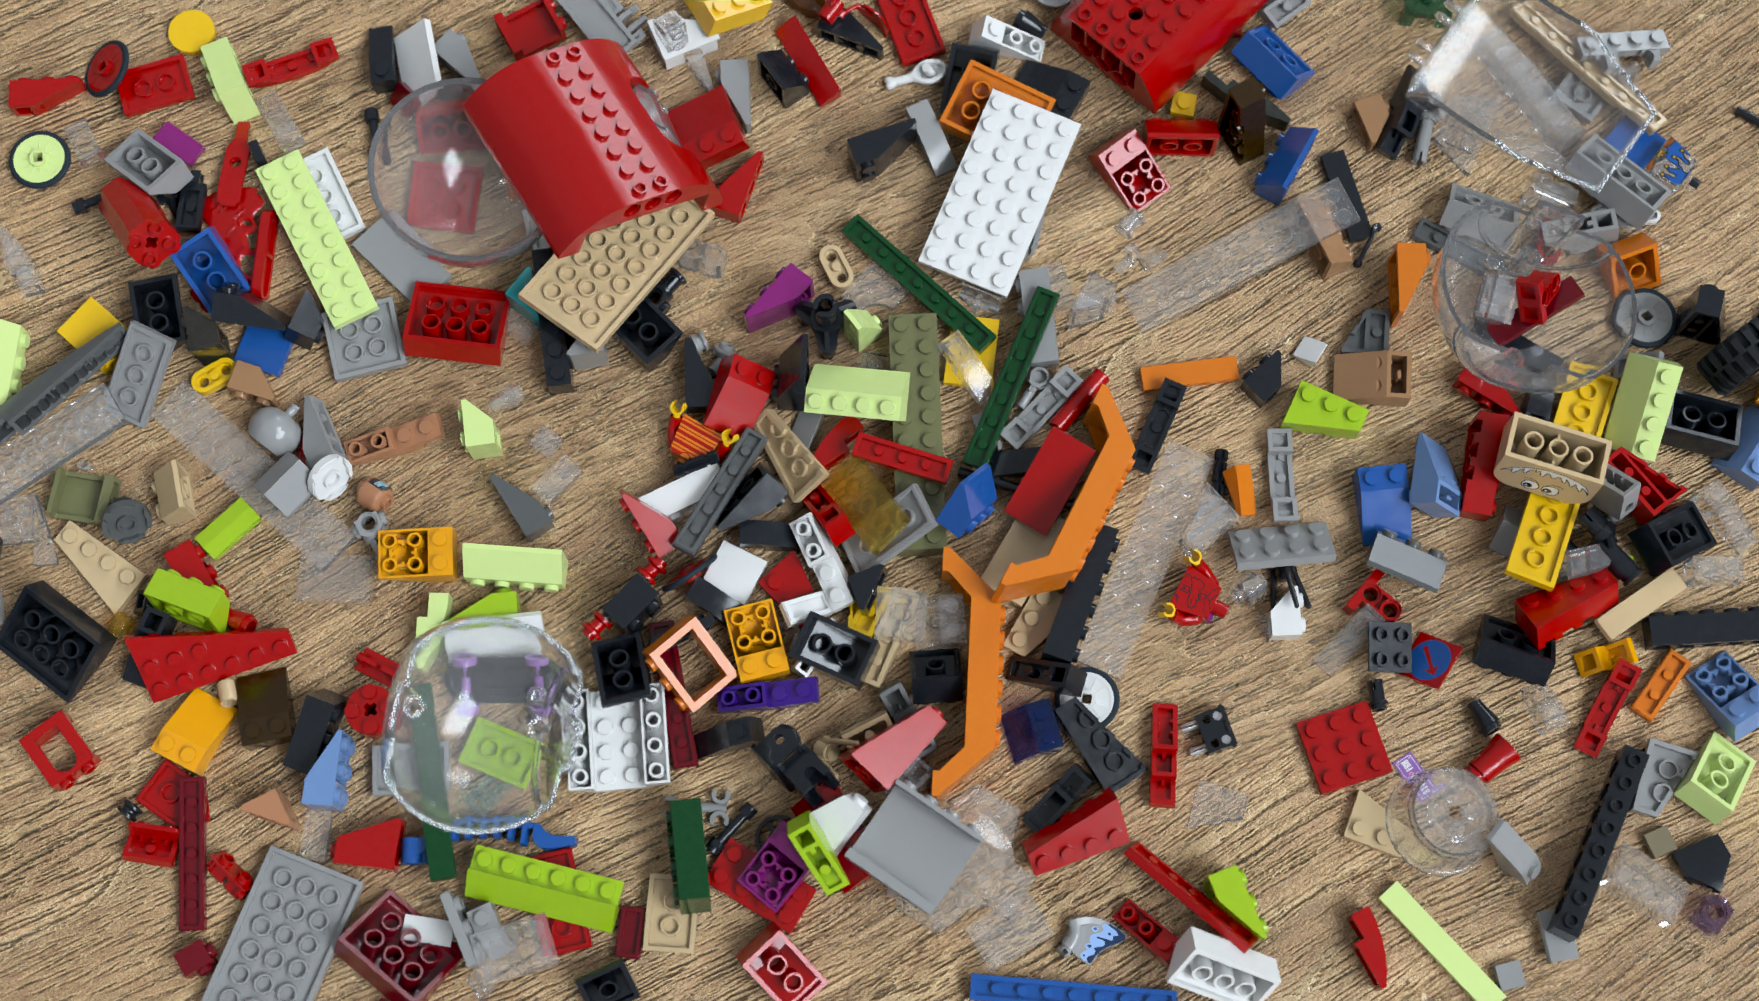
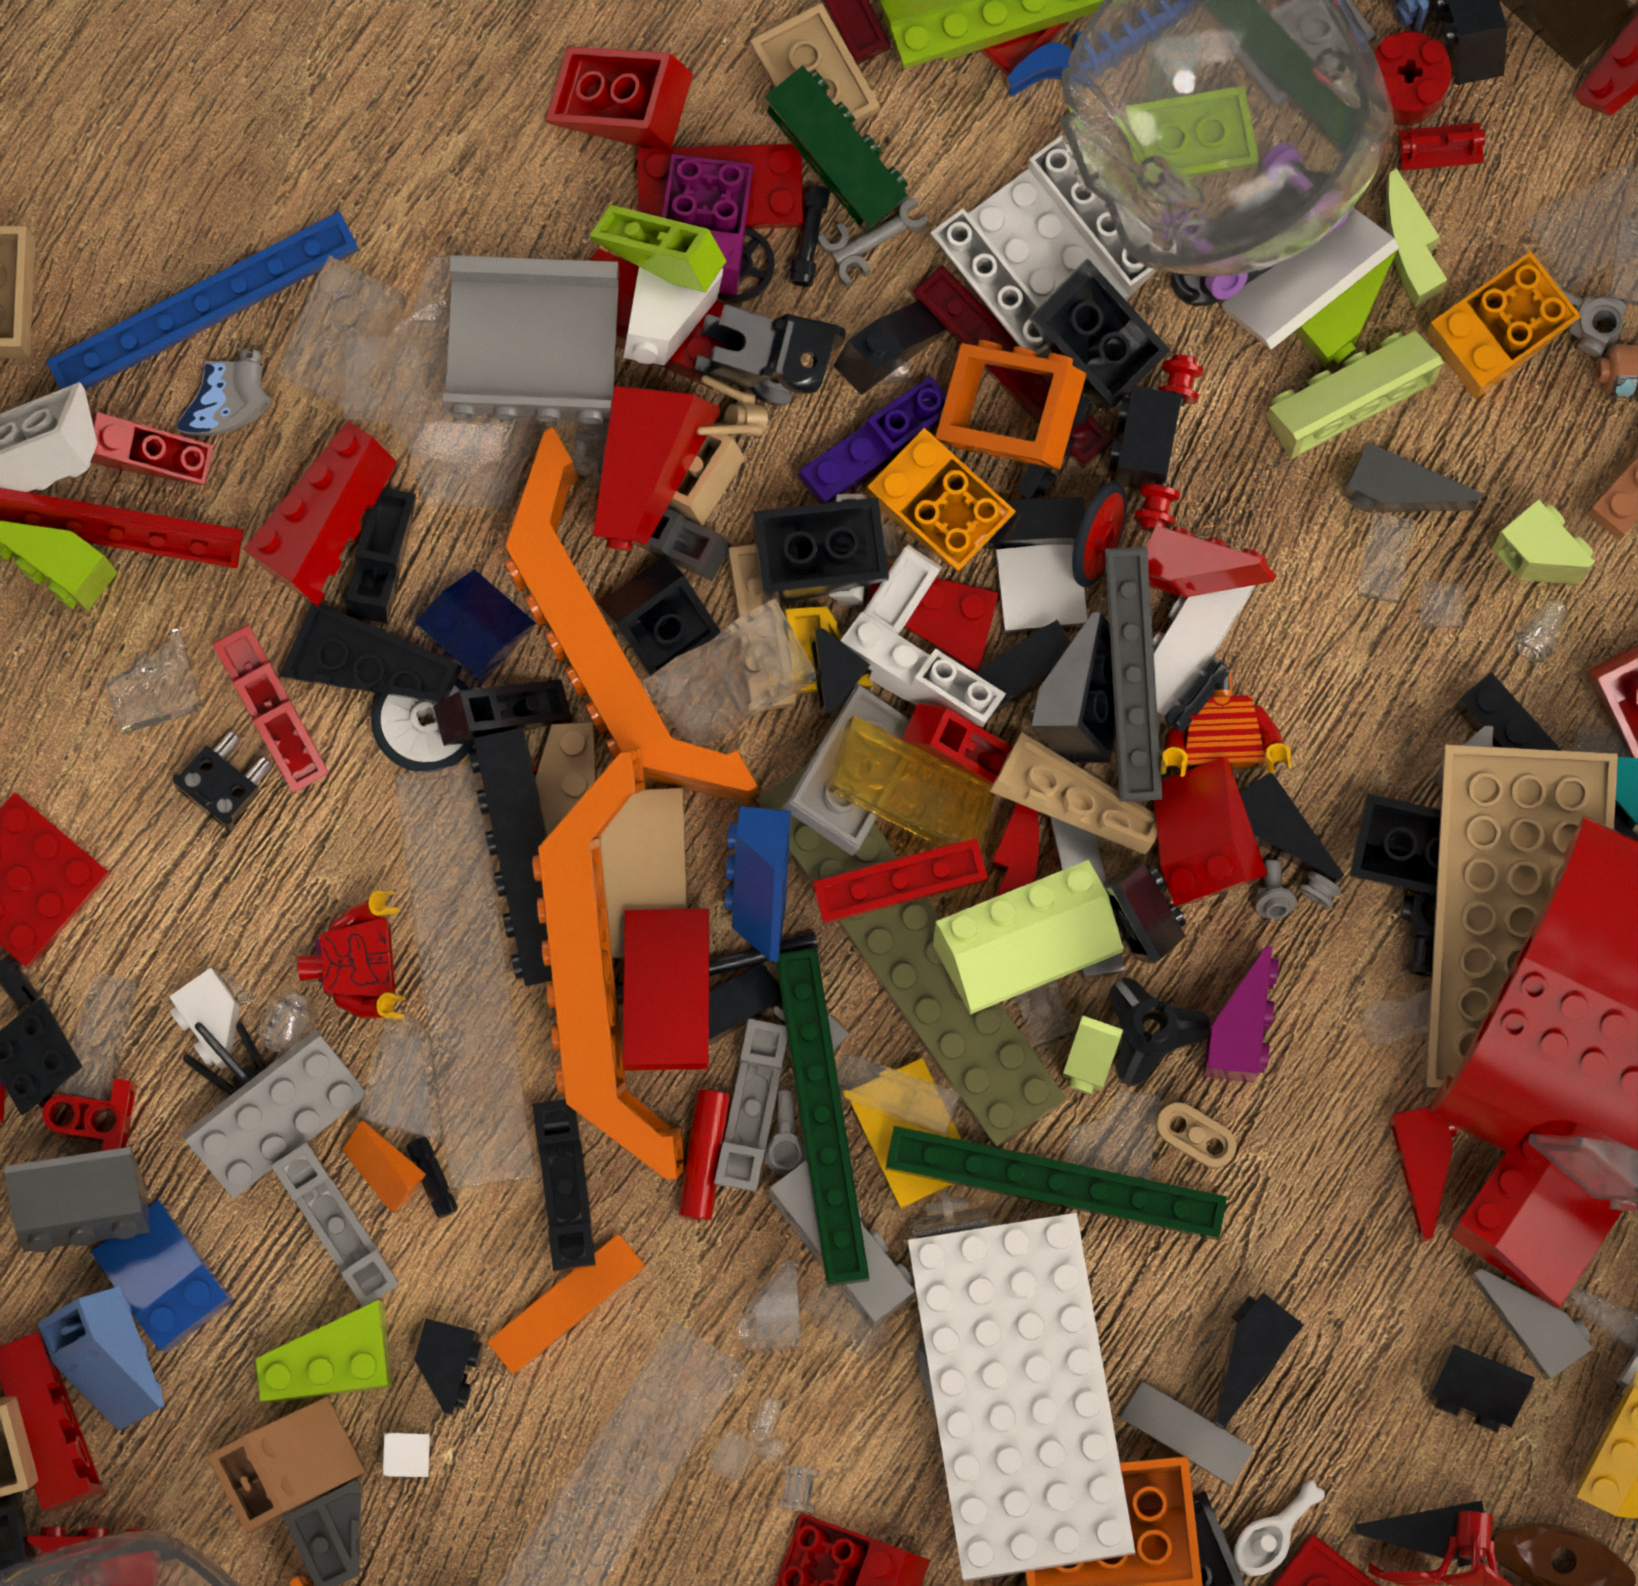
camera: 155 degrees right, 5 degrees up
(808, 61) = (1461, 1445): red slope -> none

